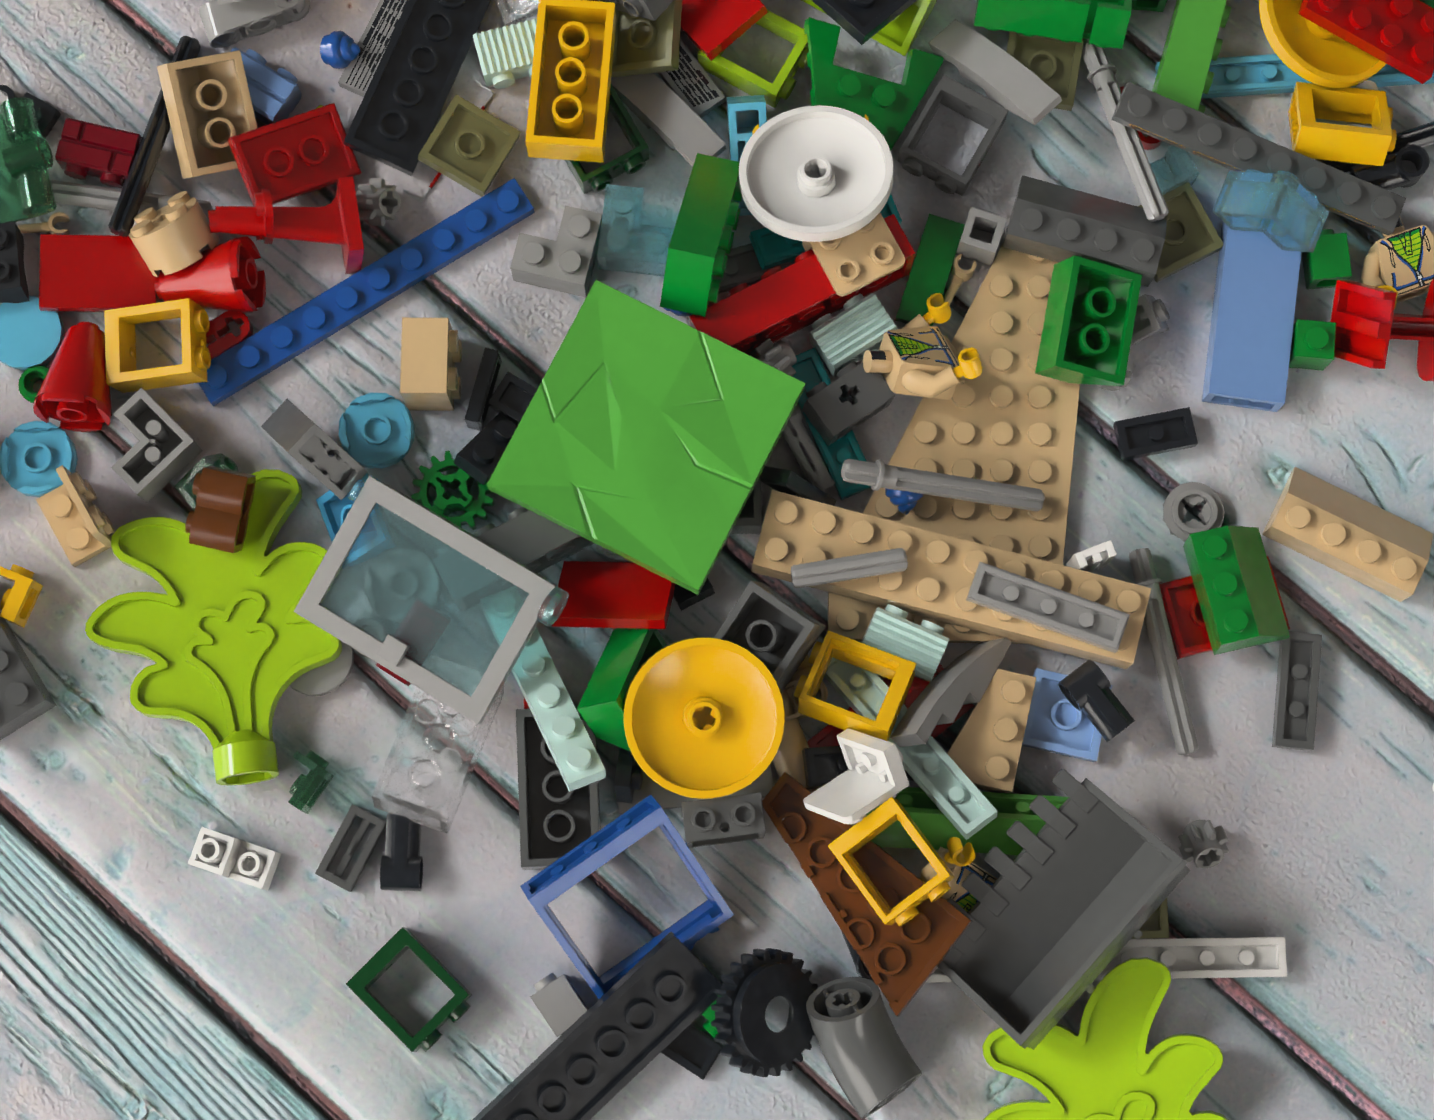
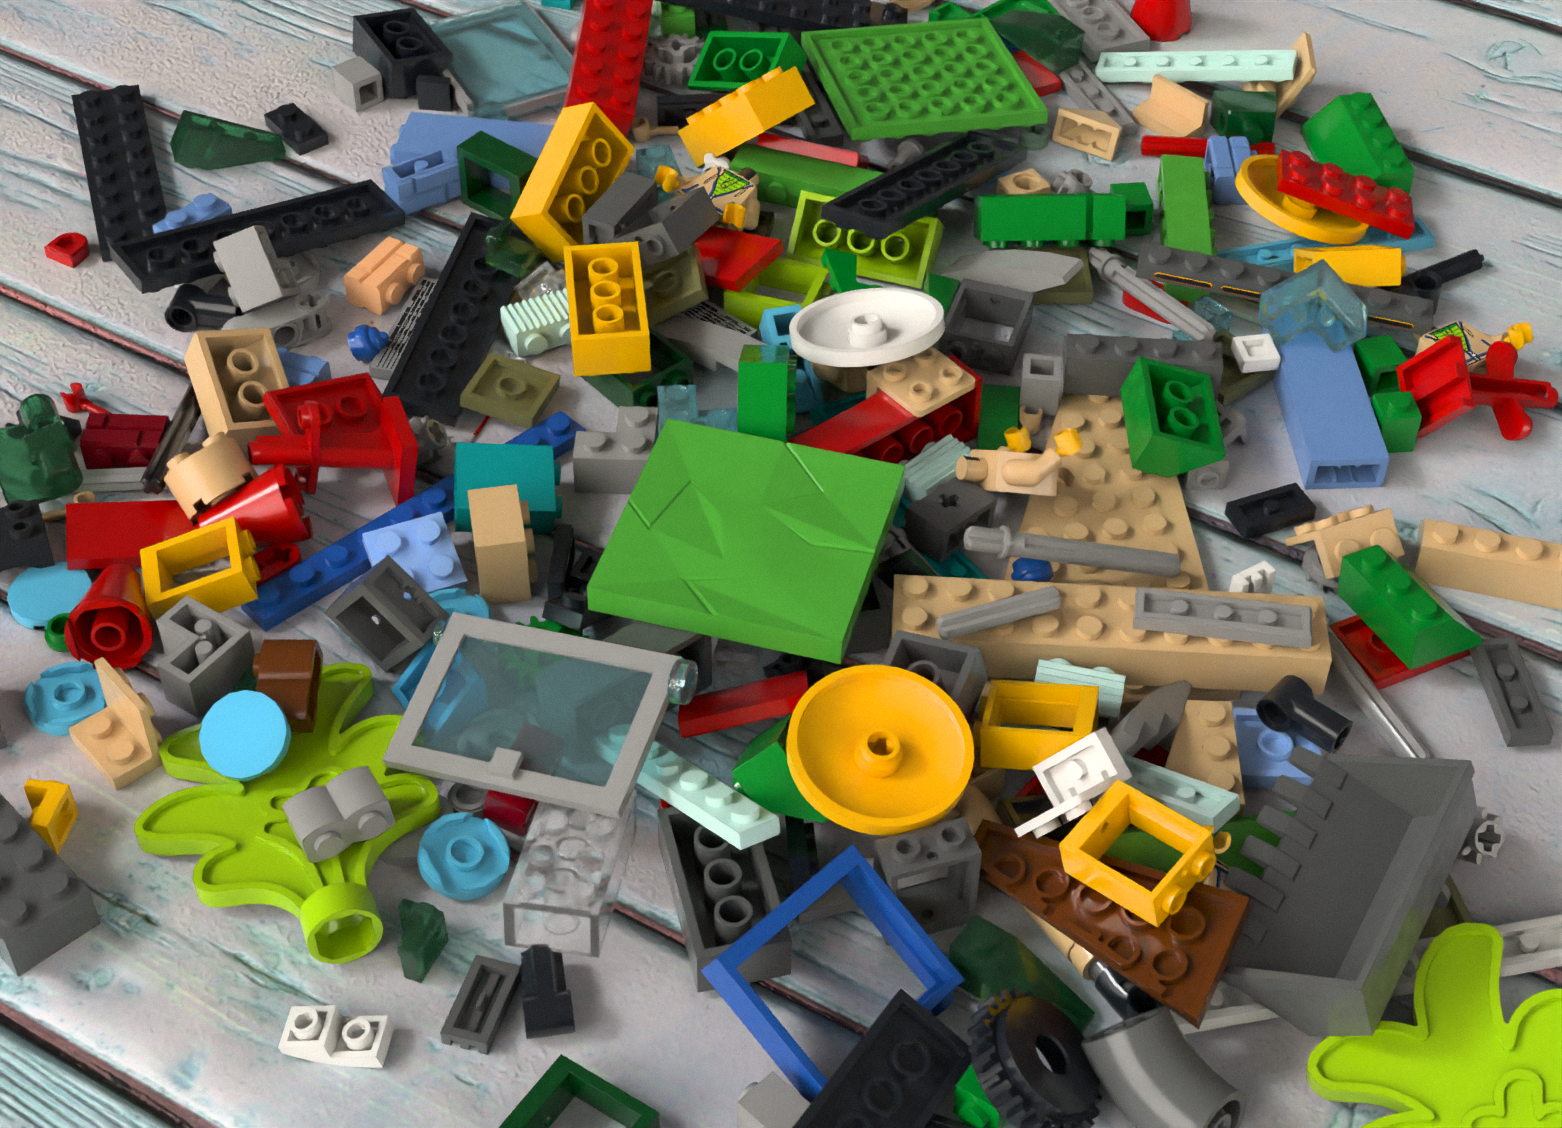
camera: 10 degrees left, 35 degrees down
(61, 79) = (78, 401): none -> red hand
(181, 561) = (245, 735): none -> medium azure tile
(252, 664) = (339, 813): none -> light grey brick
(351, 357) = (421, 550): none -> light blue plate
(354, 702) = (463, 856): none -> medium azure tile
(446, 286) = (508, 464): none -> teal brick
(780, 916) = (998, 960): none -> clear green slope
(1204, 235) = (1255, 353): none -> white plate
(1209, 492) = (1349, 533): none -> tan bracket

